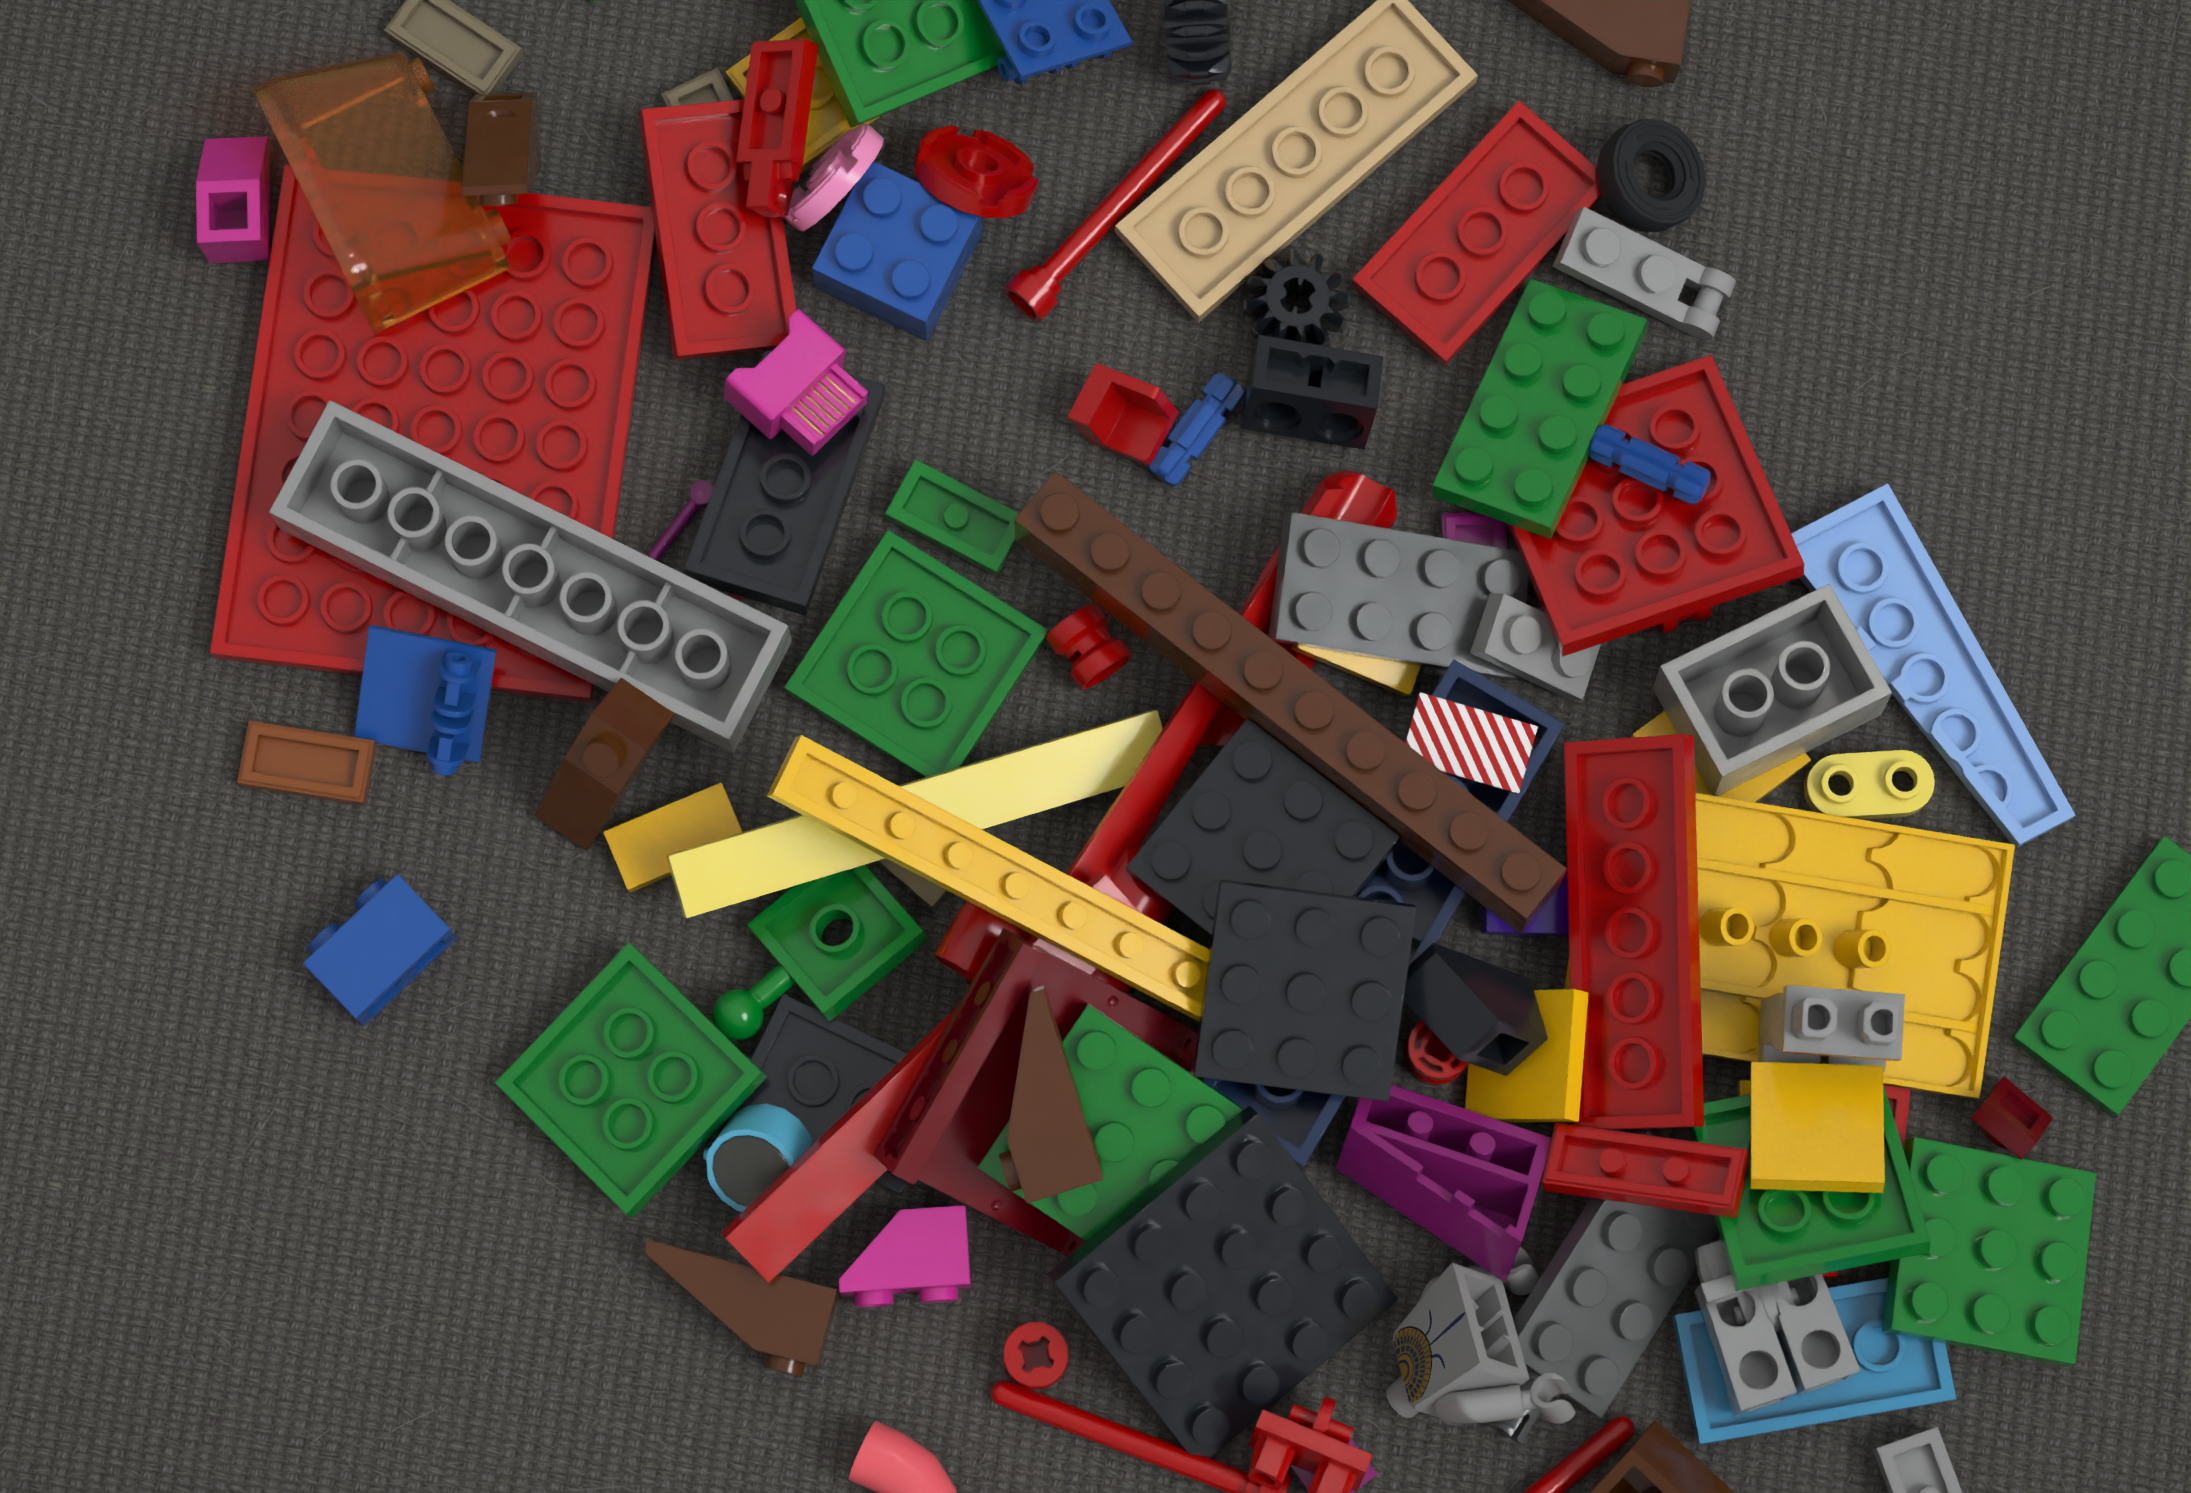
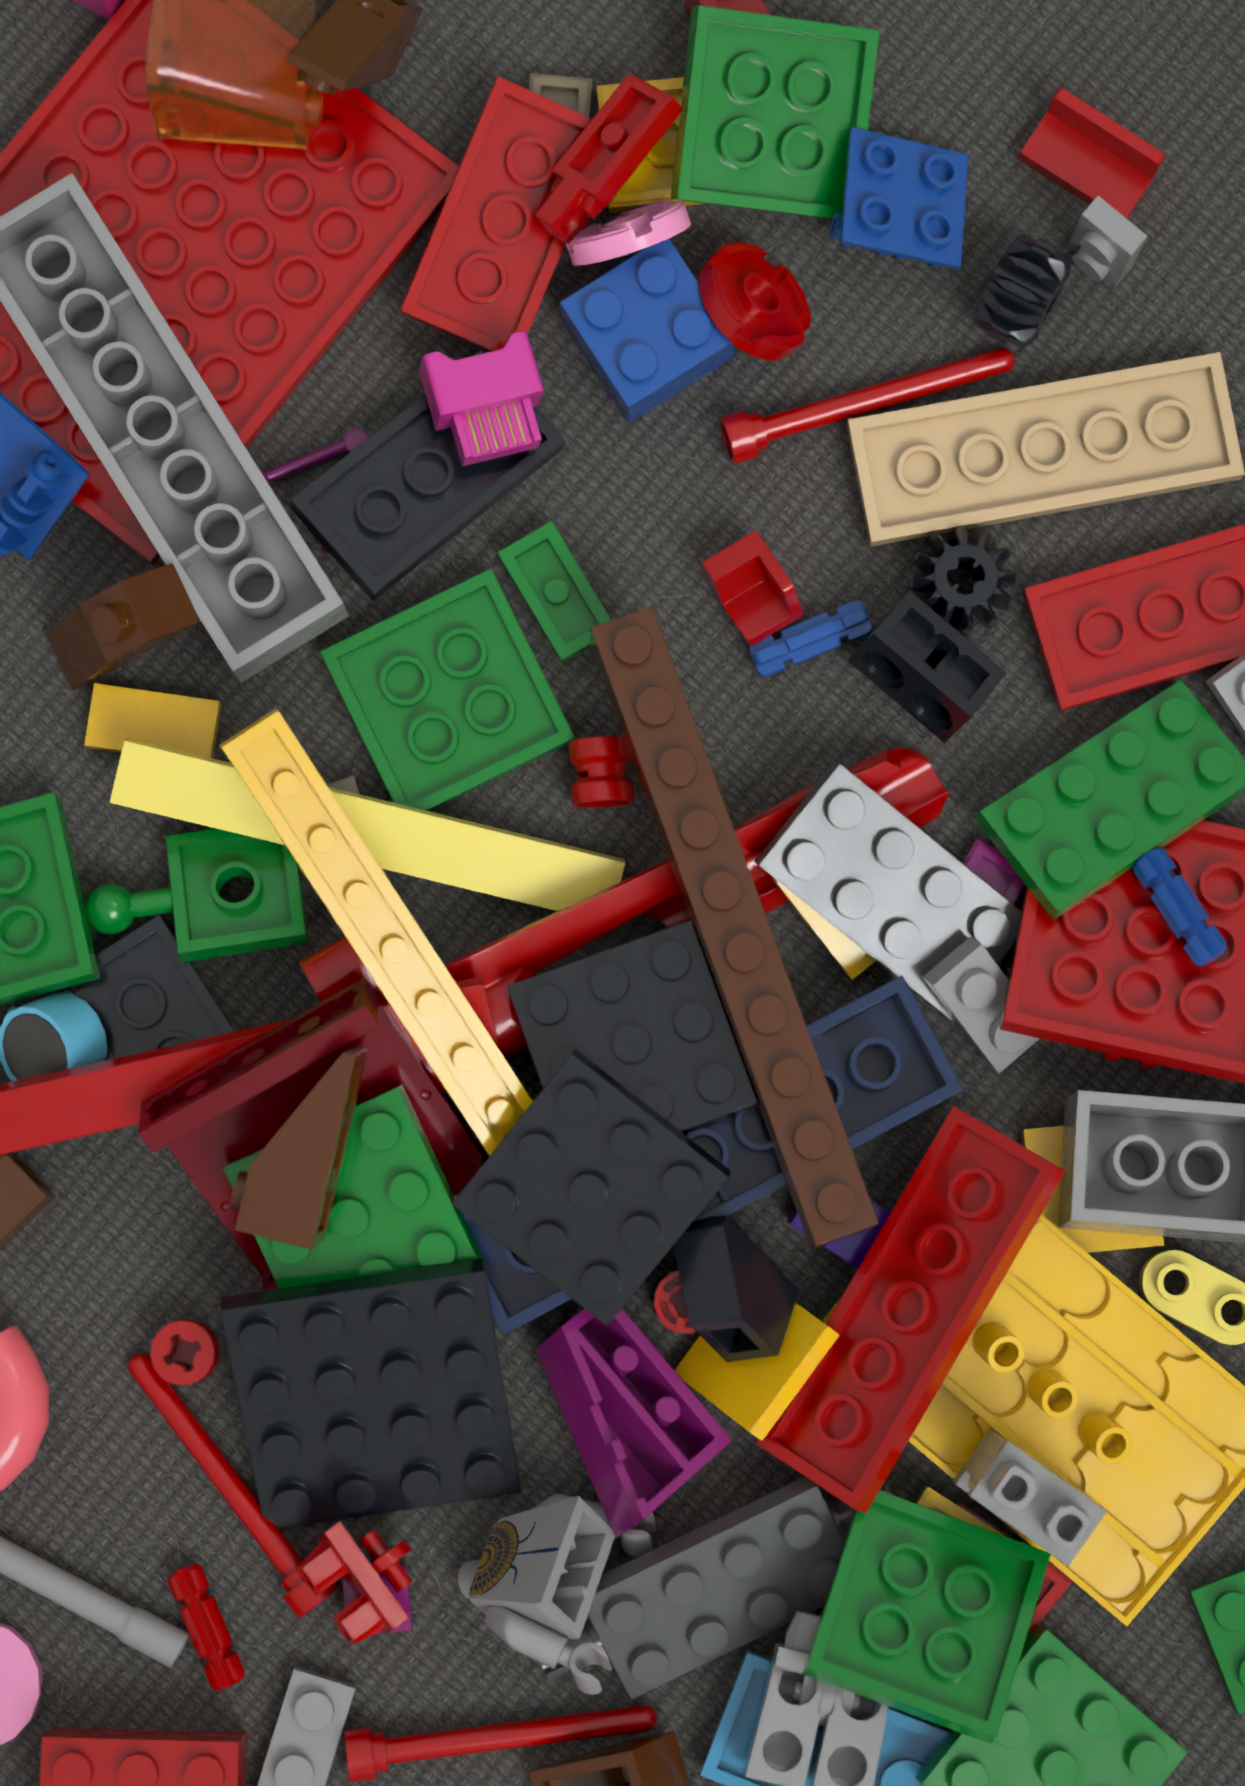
camera: 35 degrees right, 5 degrees up
(913, 1254) = (134, 1203): dark pink slope -> none
(1471, 742) = (871, 1056): sticker -> none
(1646, 1170) = (792, 1520): red tile -> none
(1817, 1127) = (962, 1575): yellow tile -> none
(2011, 1118) = (1143, 1661): dark red plate -> none

